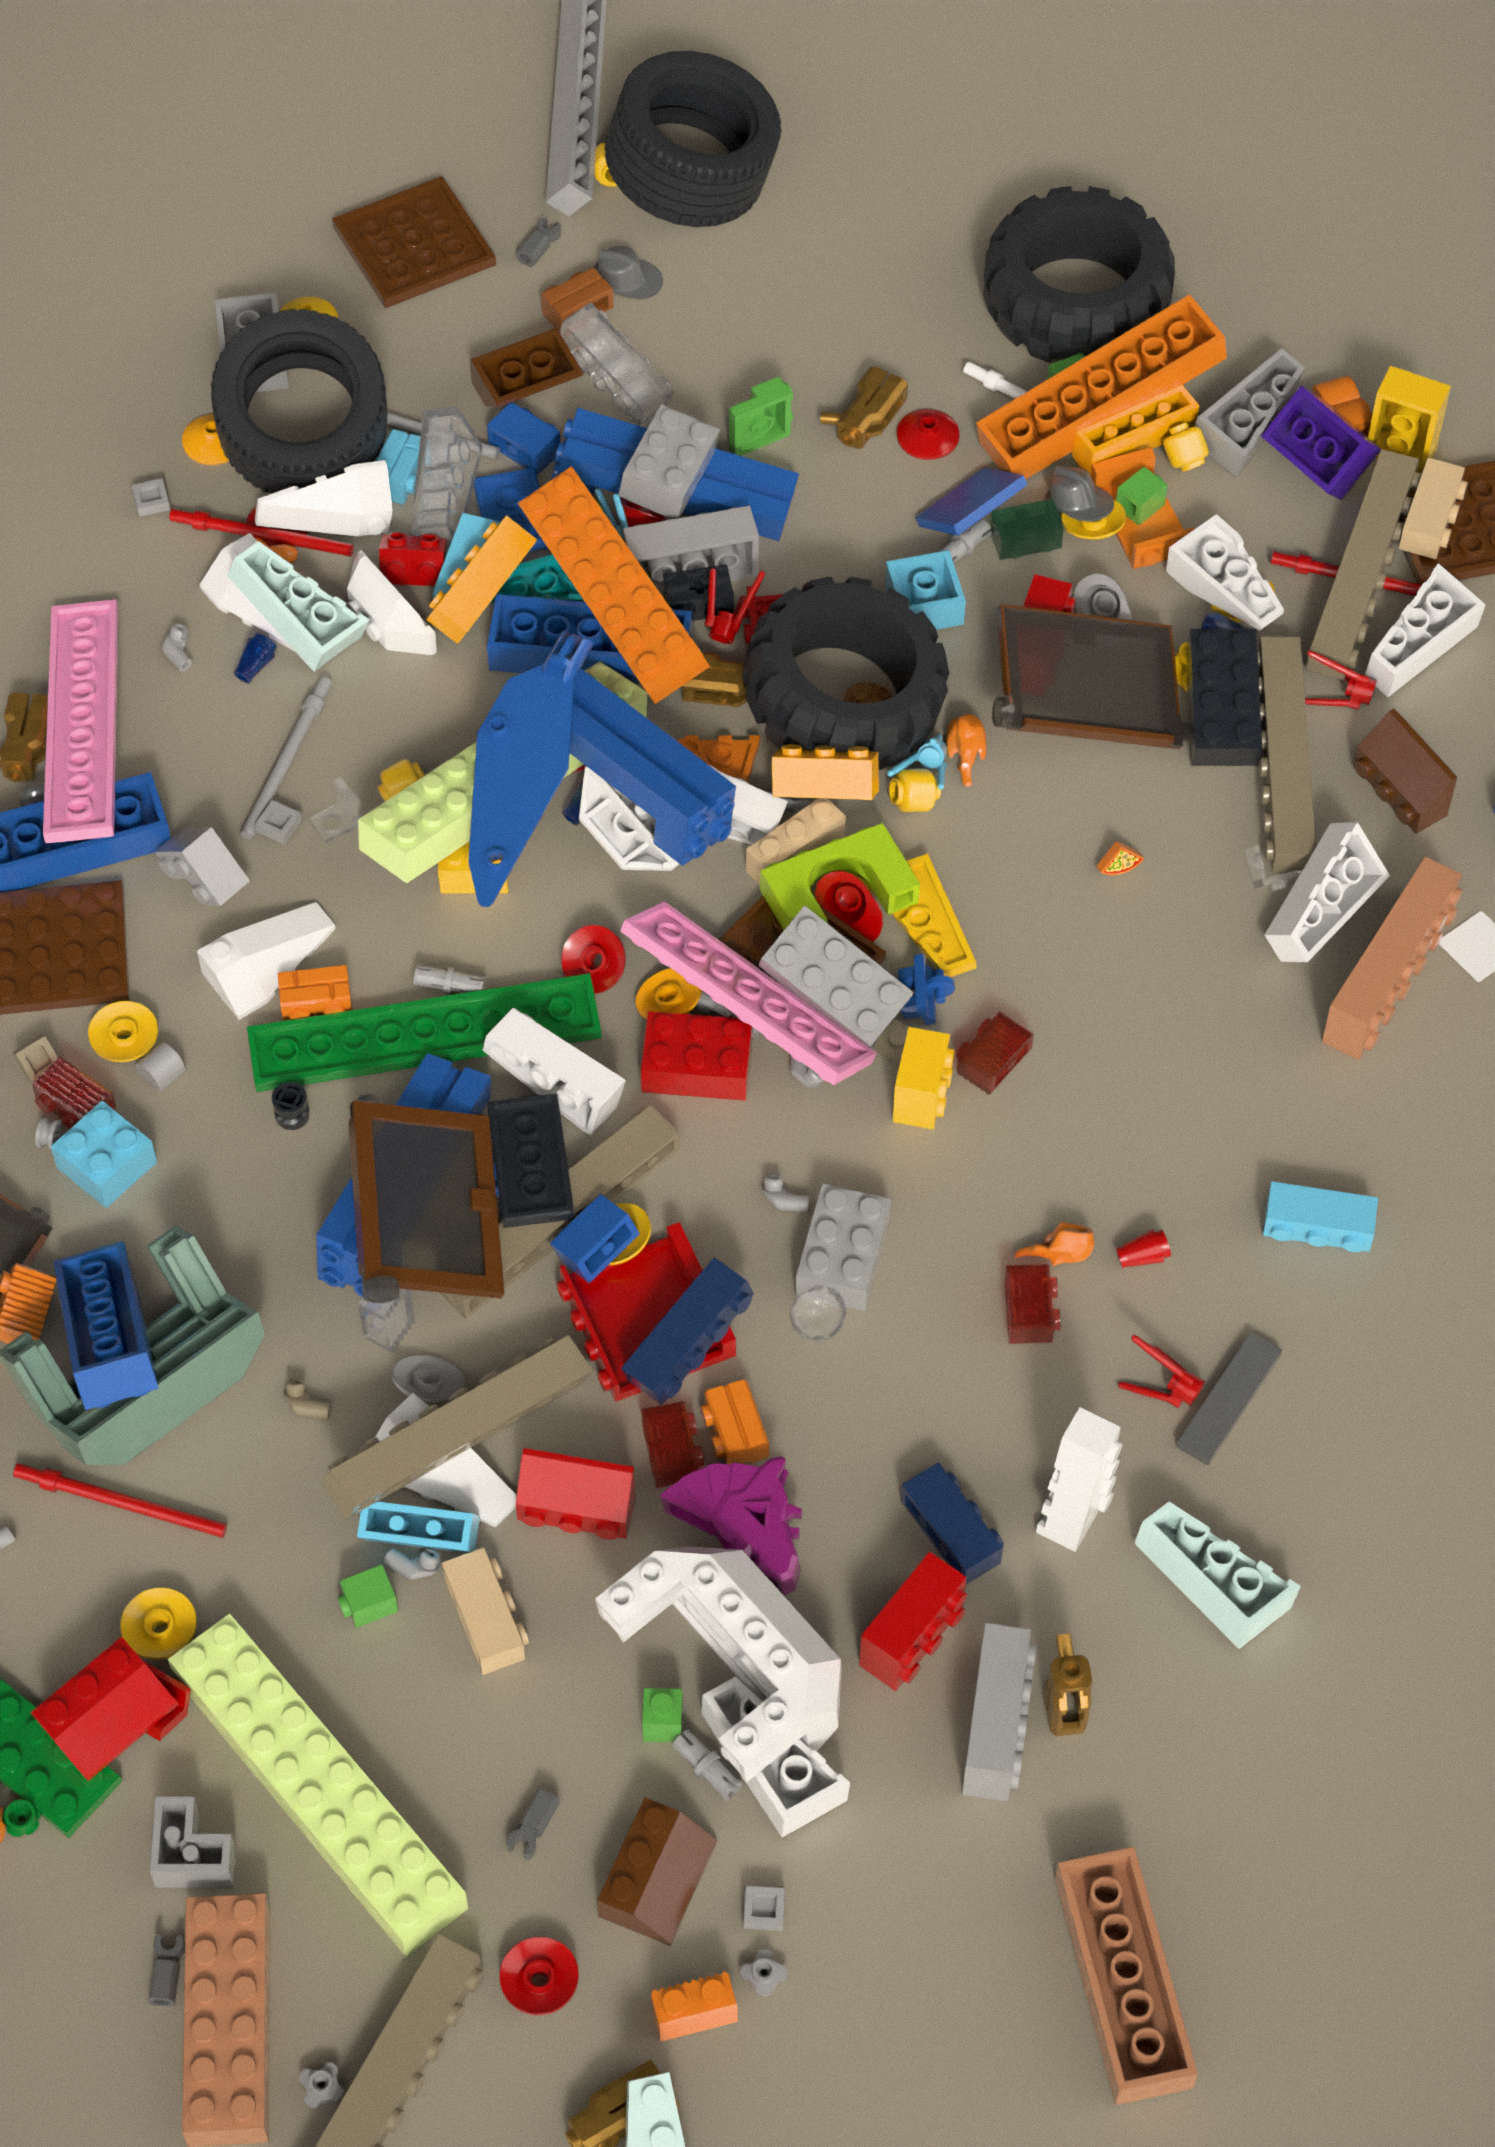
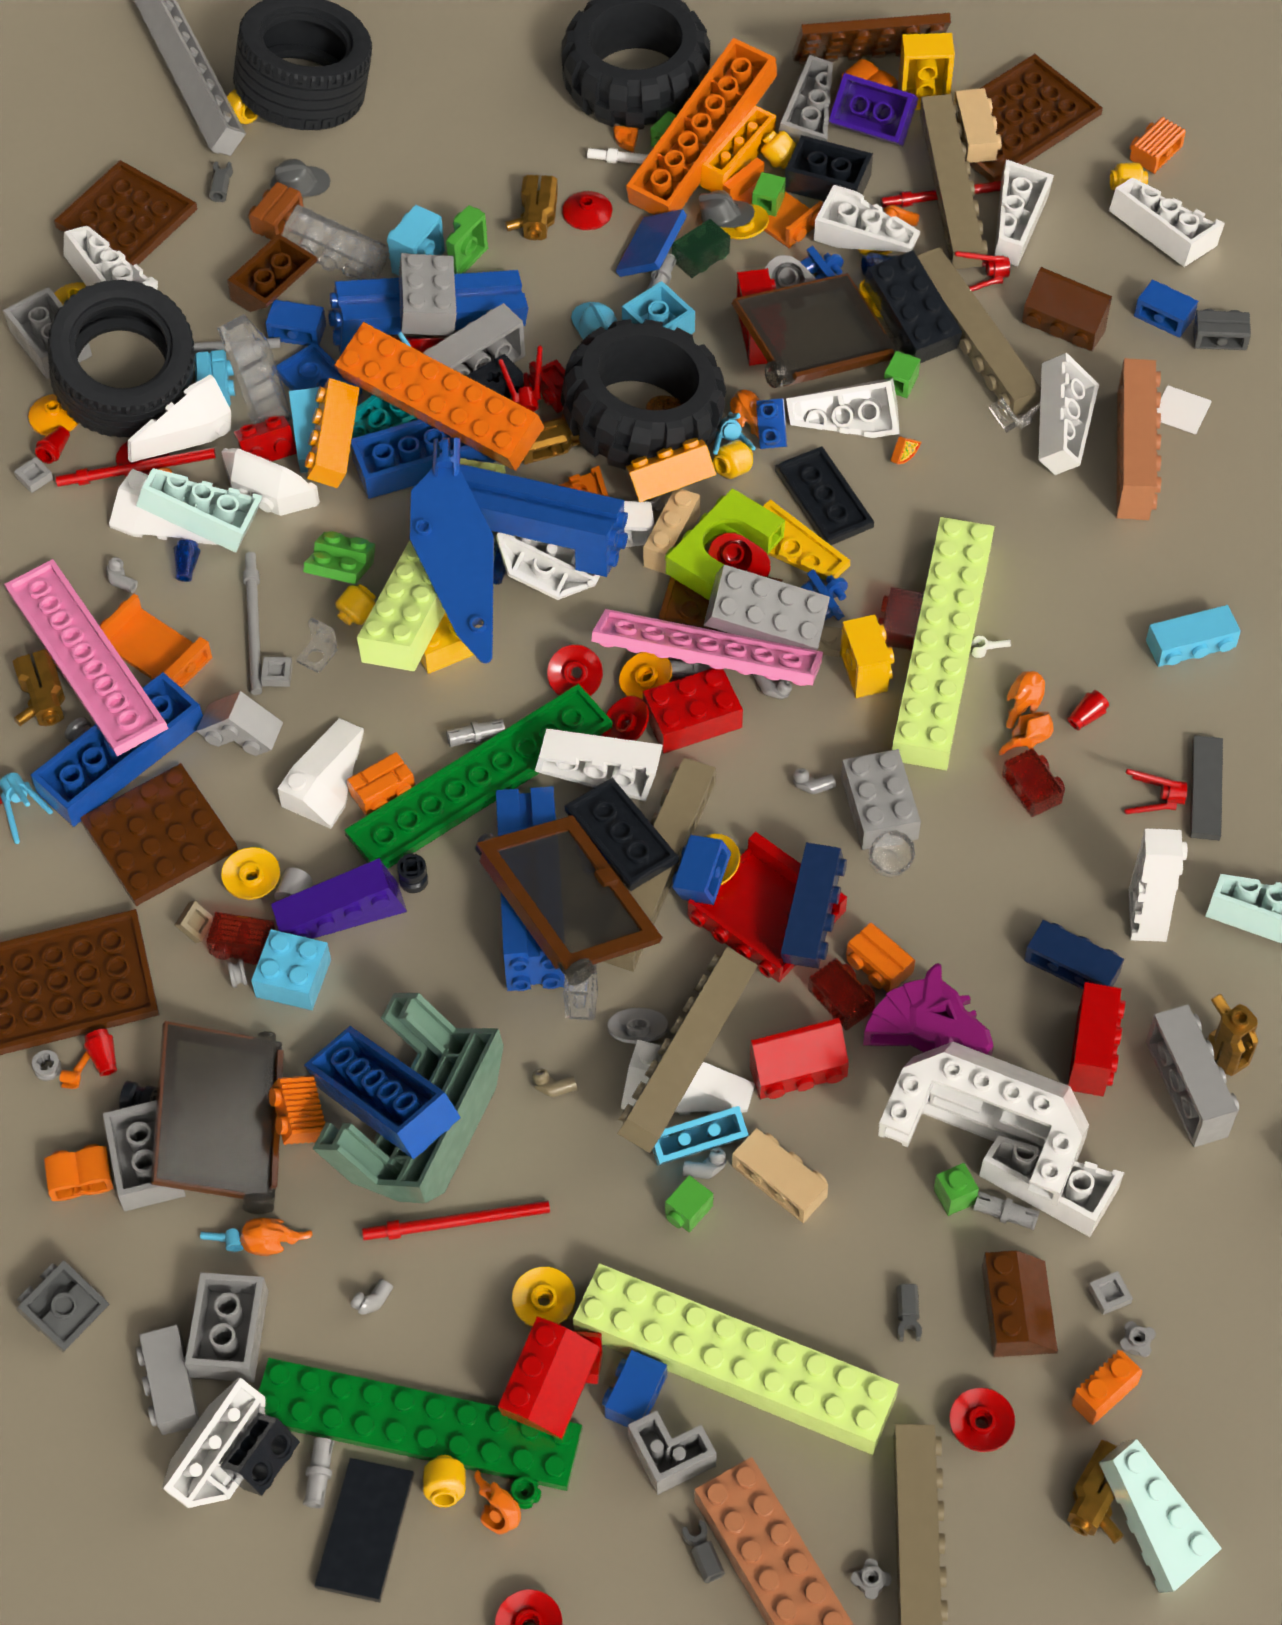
camera: 25 degrees left, 0 degrees up
(167, 738) = (154, 645): none -> orange panel
(188, 472) = (52, 445): none -> red cone
(195, 1765) = (635, 1390): none -> blue brick
(196, 1105) = (341, 902): none -> dark purple wedge
(354, 294) = (97, 262): none -> white wedge
(415, 724) = (340, 557): none -> bright green plate
(619, 1037) = (628, 718): none -> red dish
(705, 391) = (416, 234): none -> medium azure brick
(860, 561) = (591, 316): none -> medium azure piece
(980, 767) = (771, 423): none -> blue hips
(996, 876) = (824, 496): none -> black tile
(1023, 365) = (626, 137): none -> orange tile
(1023, 1101) = (943, 643): none -> yellowish green brick
(1068, 1129) = (982, 644): none -> white hand
(1084, 1197) = (1026, 690): none -> orange piece
(1091, 789) = (855, 409): none -> white wedge
(1145, 599) = (826, 268): none -> blue hips
(1168, 770) = (904, 371): none -> bright green brick
(1226, 486) = (821, 164): none -> black brick
(1285, 581) = (907, 216): none -> orange arm
(1356, 351) = (863, 37): none -> reddish brown plate

